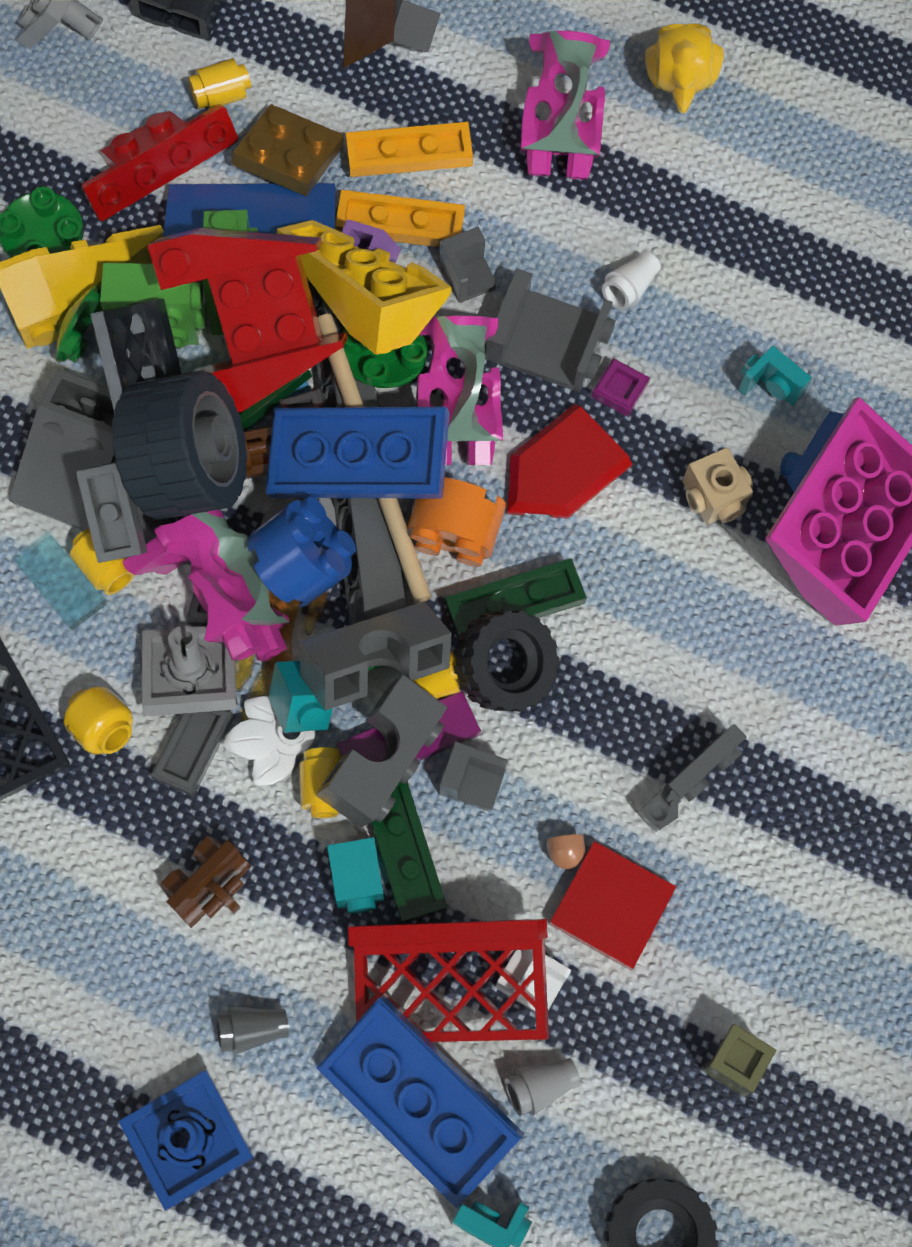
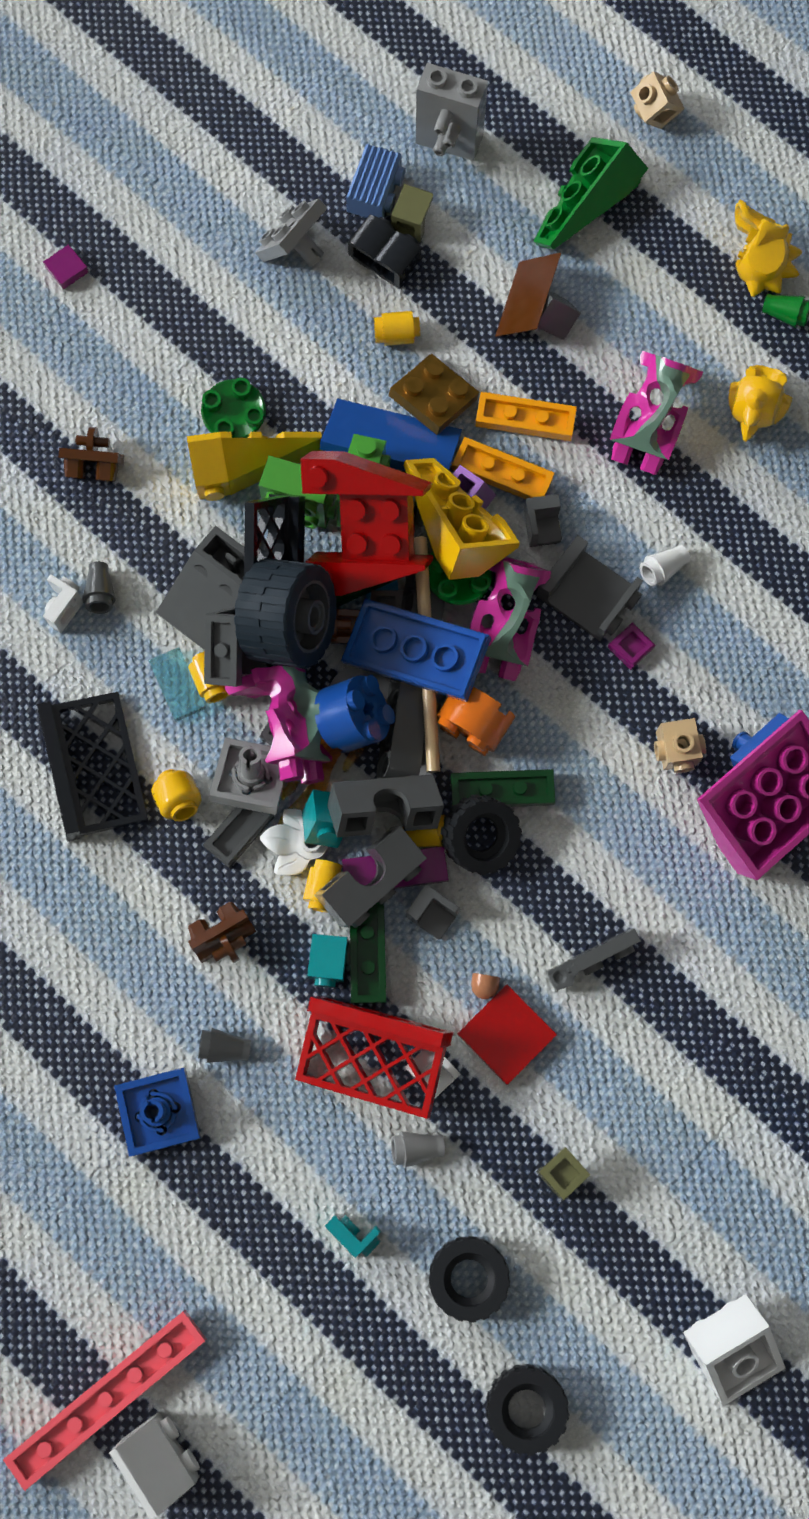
camera: 20 degrees right, 5 degrees up
(74, 325) = (232, 500): green dish -> none
(156, 156) = (333, 373): red bracket -> none
(420, 1101) = (327, 1134): blue tile -> none
(564, 466) = (569, 696): red tile -> none
(778, 372) = (755, 670): teal bracket -> none

